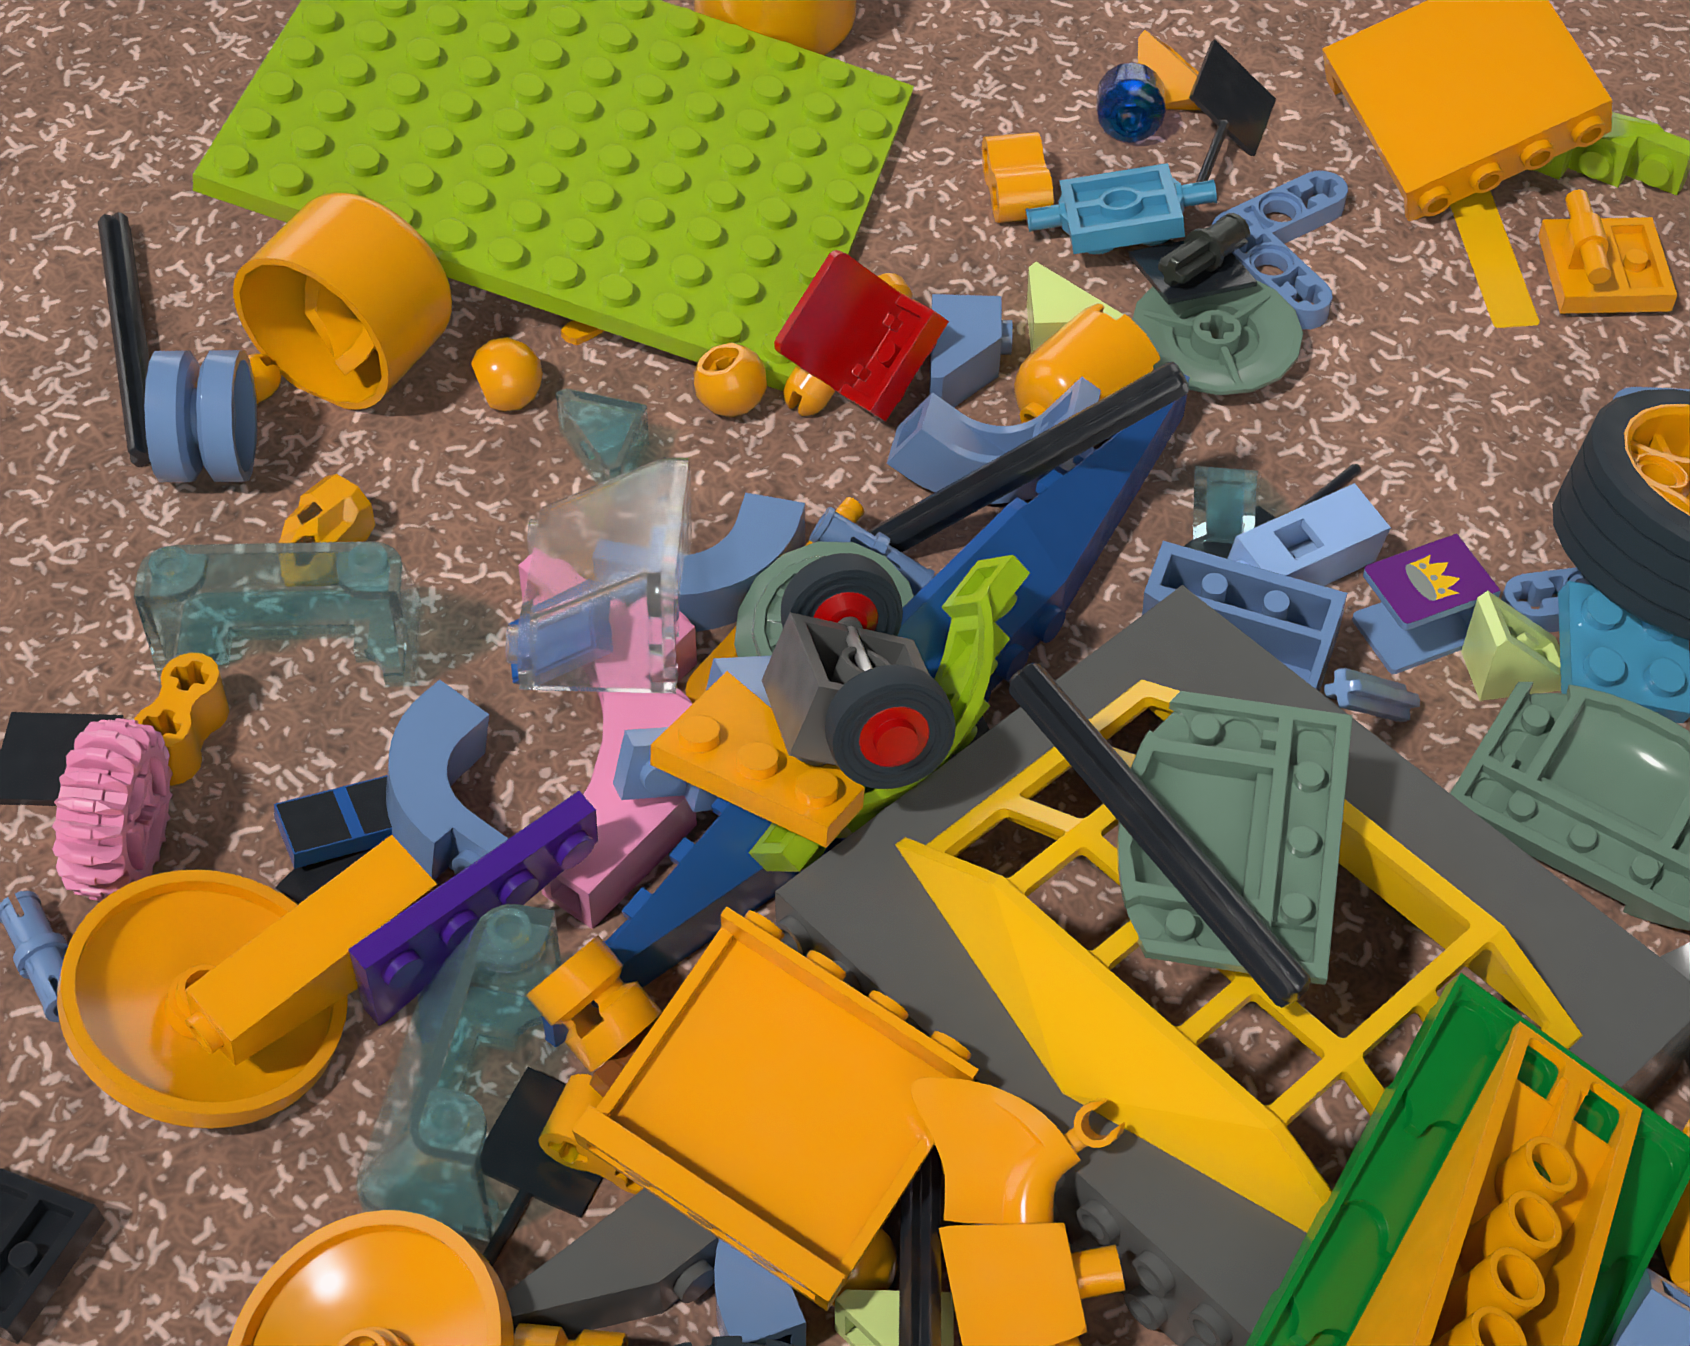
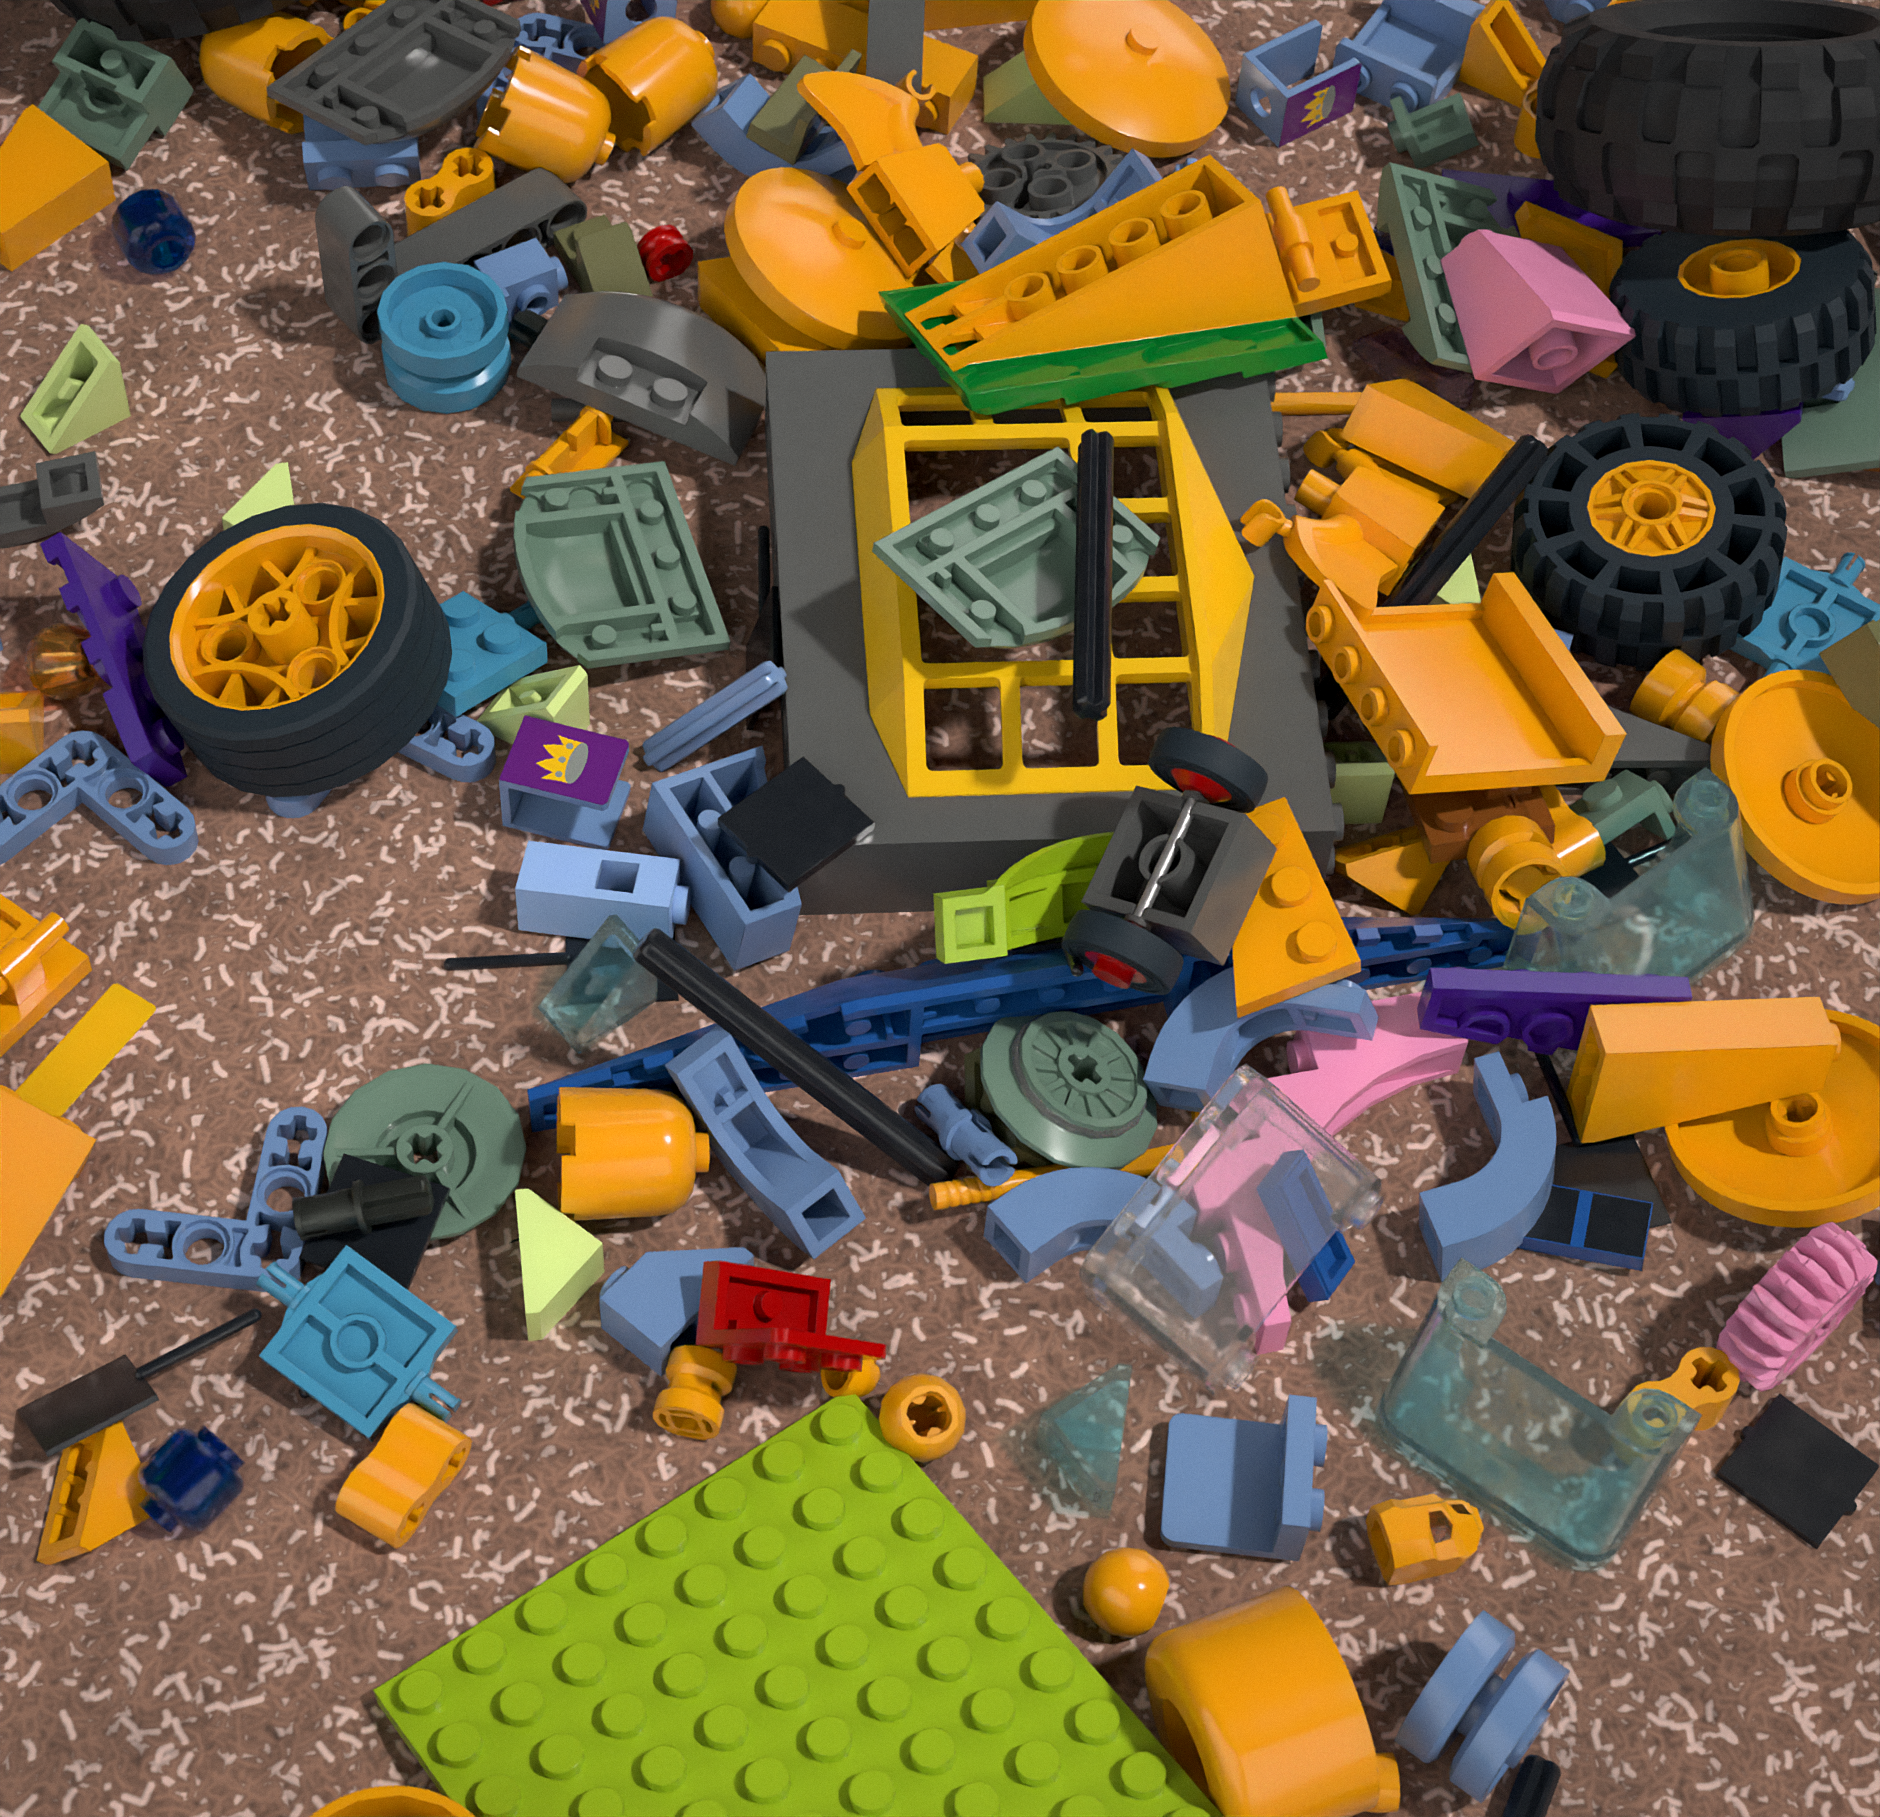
camera: 145 degrees left, 5 degrees up
(476, 484) = (1244, 1482): none -> medium blue bracket
(554, 1203) = (1622, 803): none -> sand green bracket
(1198, 595) = (796, 824): none -> black piece

